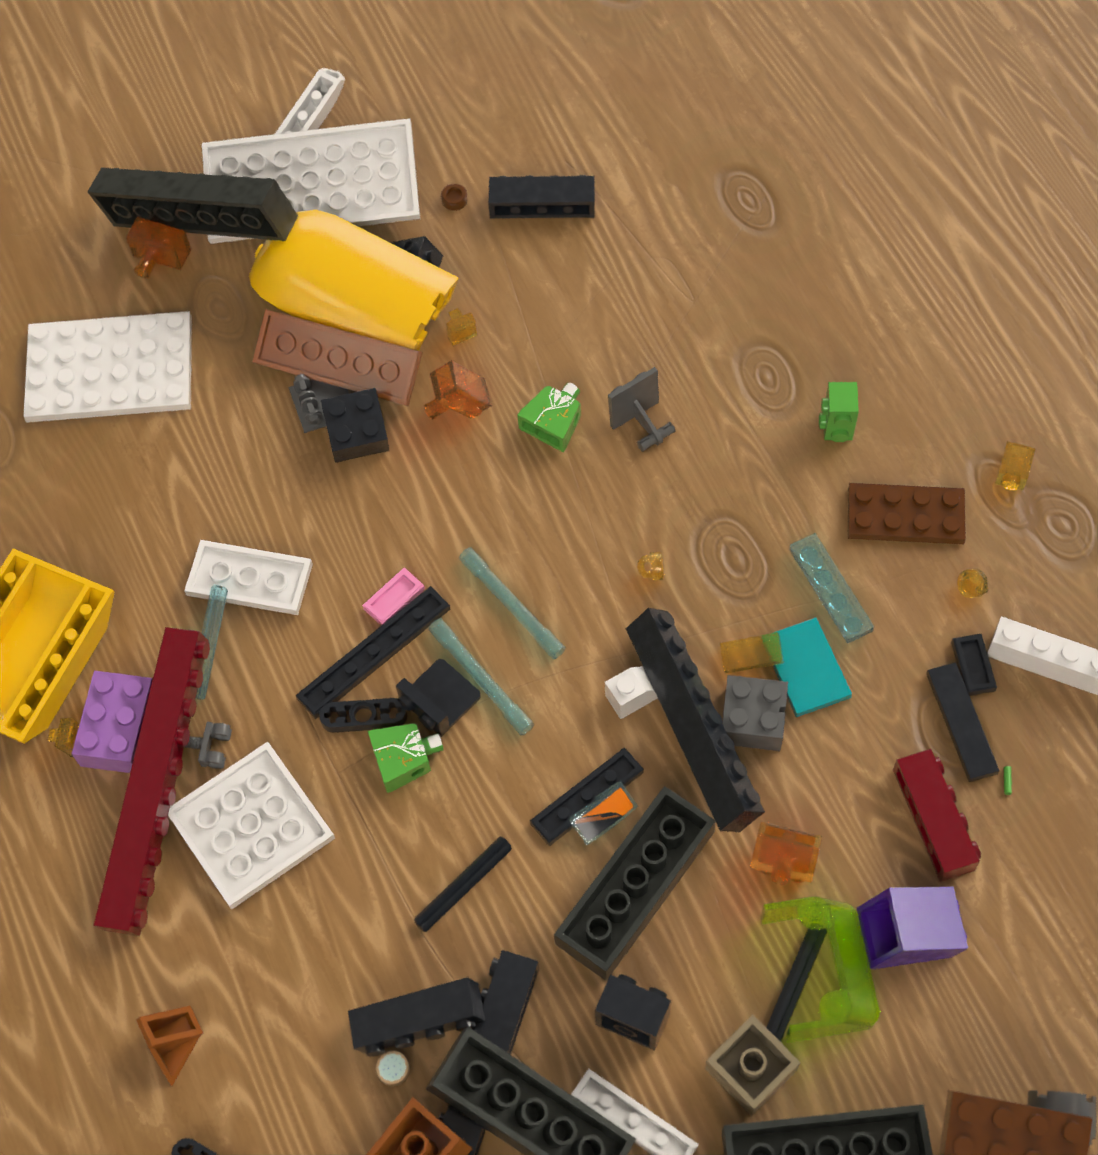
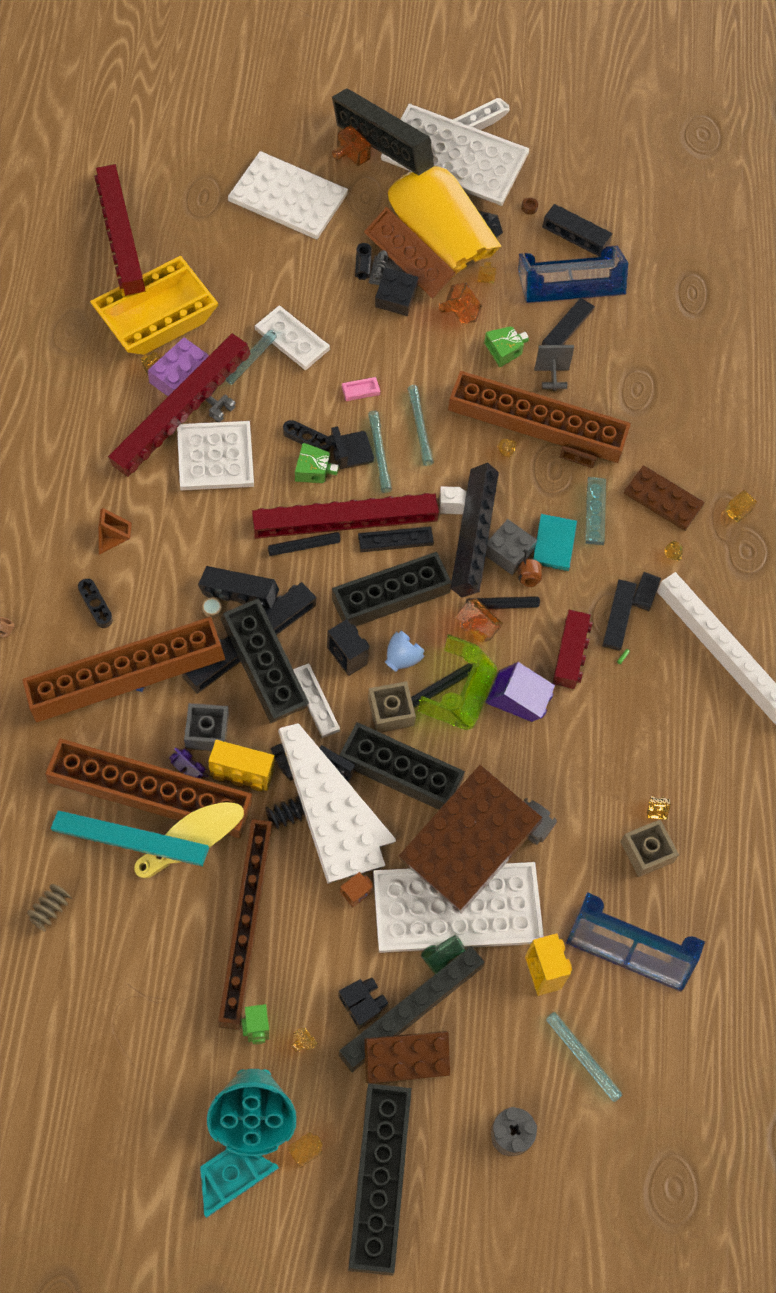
camera: 20 degrees right, 0 degrees up
(278, 406) = (363, 261): none -> black piece
(373, 651) = (333, 409): black tile -> none
(493, 806) = (345, 515): none -> dark red brick
(581, 265) = (574, 277): none -> clear blue windscreen
(604, 813) = (398, 550): slope -> none
(617, 339) = (569, 323): none -> black tile
(668, 495) = (539, 416): none -> dark orange brick
(711, 968) = (402, 653): none -> light blue piece
(751, 653) = (530, 518): clear yellow tile -> none
(755, 521) = (578, 457): none -> reddish brown slope
(799, 799) = (509, 602): none -> black axle
(805, 734) = (530, 572): none -> dark orange head
(839, 411) = (661, 424): bright green brick -> none

